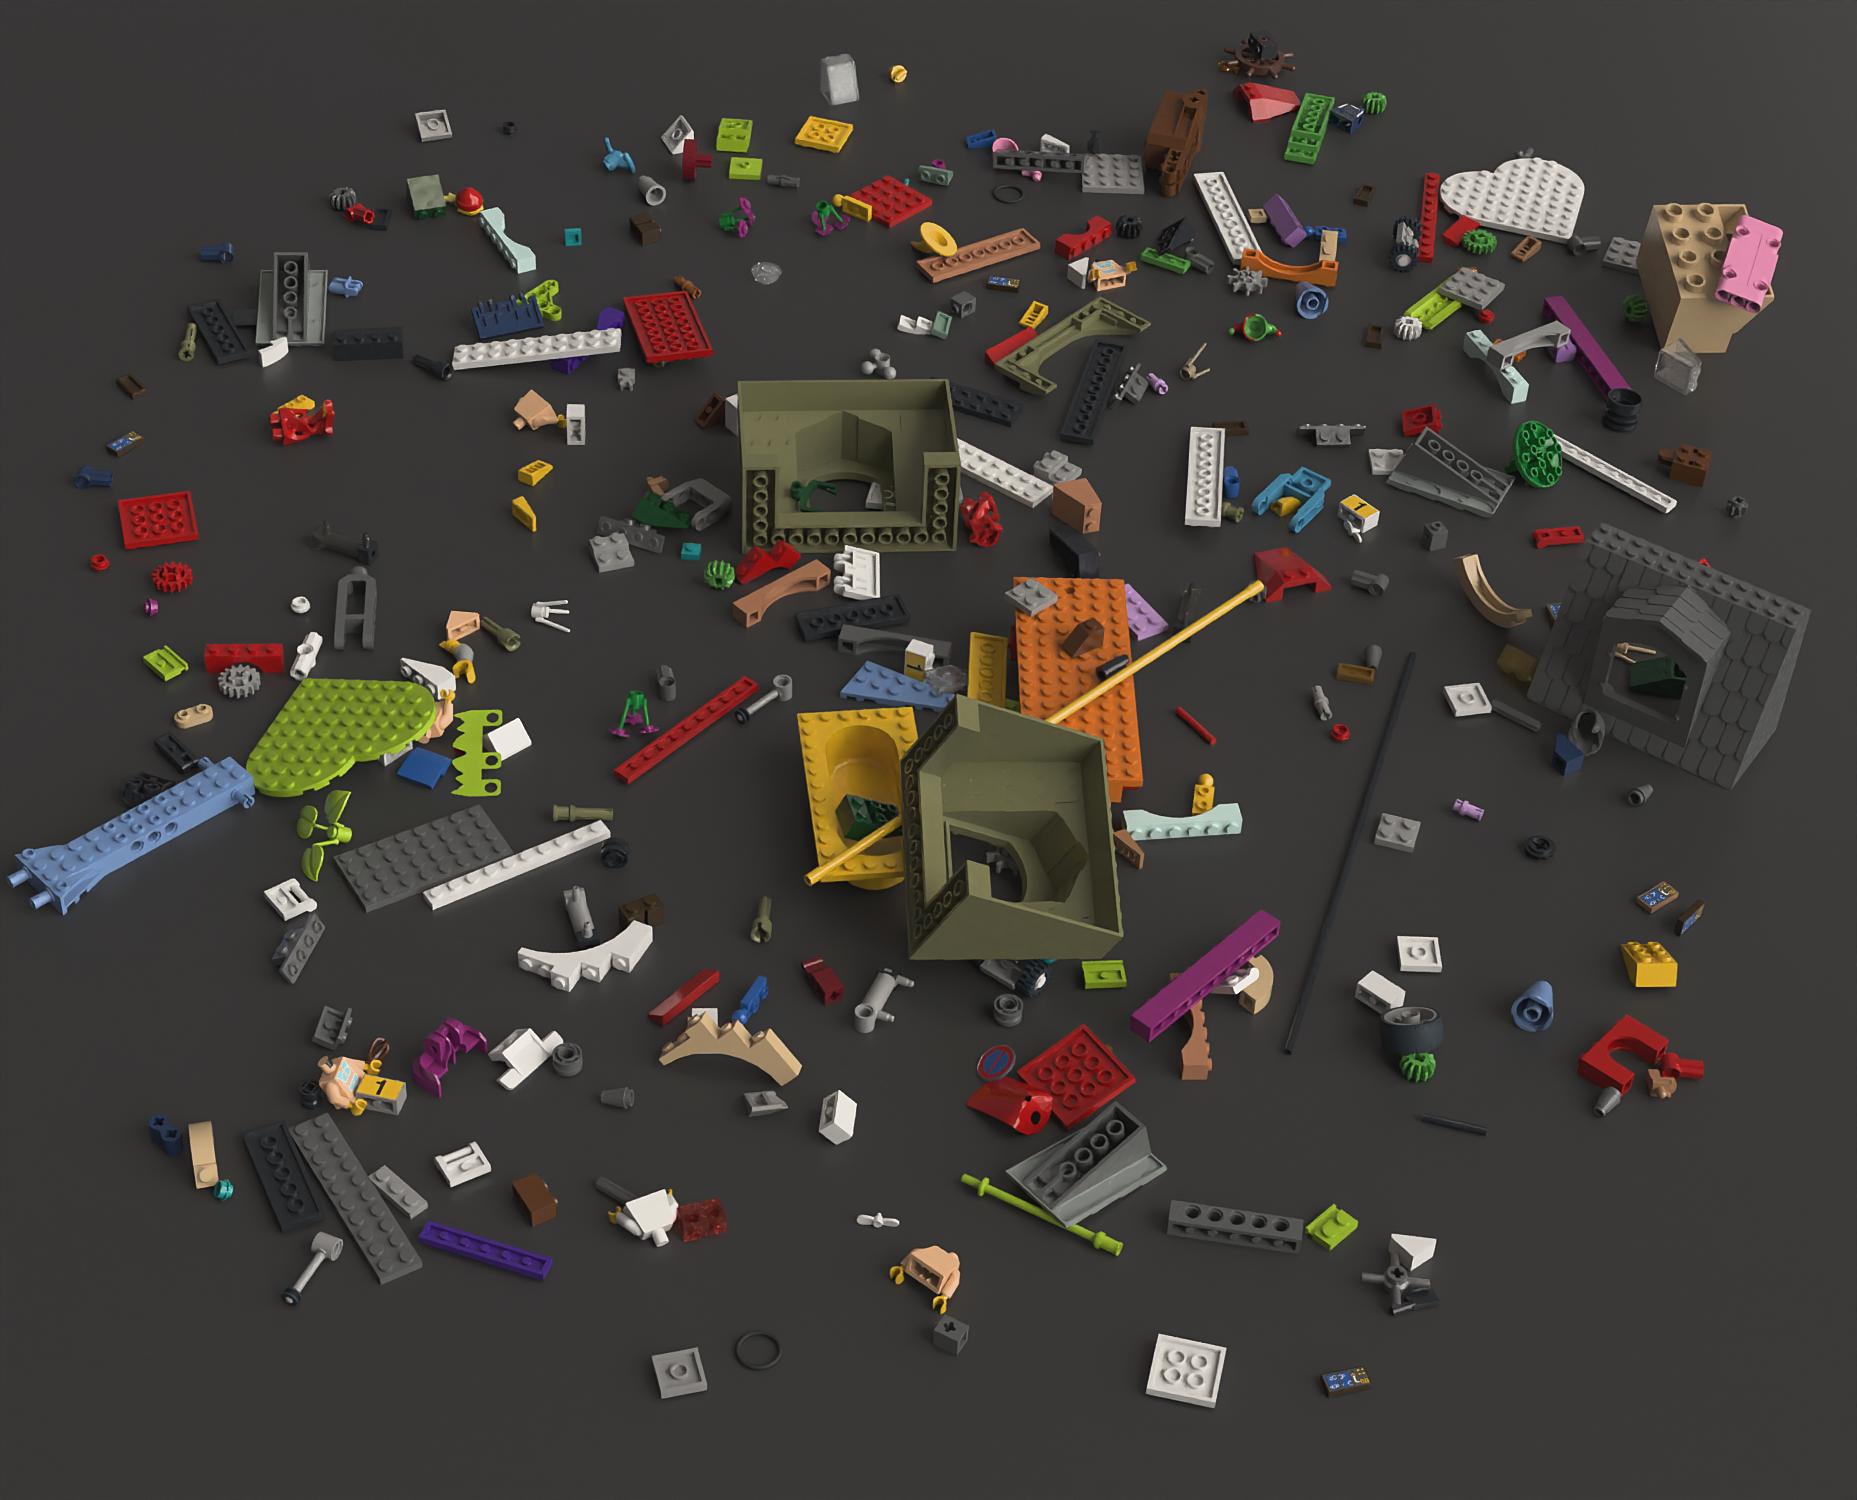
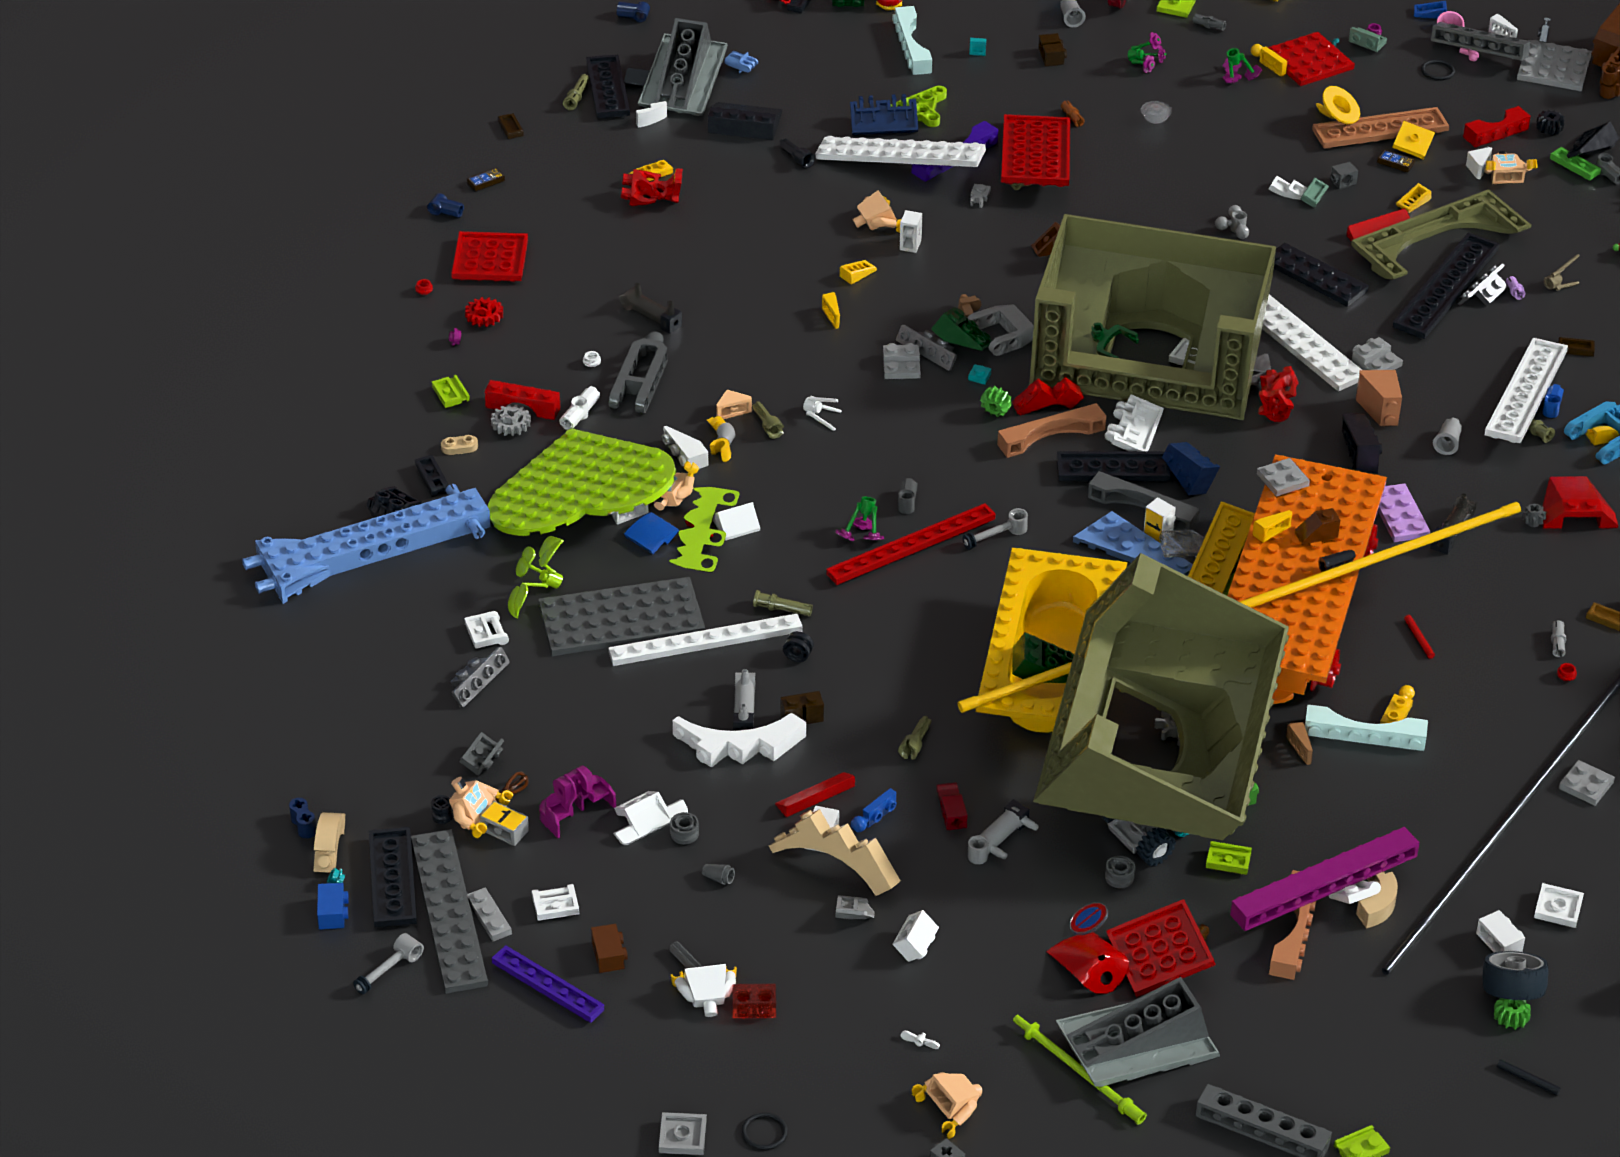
camera: 20 degrees right, 0 degrees up
(229, 1220) = (331, 906): none -> blue brick
(928, 605) = (1190, 467): none -> dark blue wedge
(1013, 261) = (1413, 140): none -> yellow plate
(1040, 645) = (1272, 525): none -> yellow slope
(1151, 534) = (1447, 439): none -> light grey plant

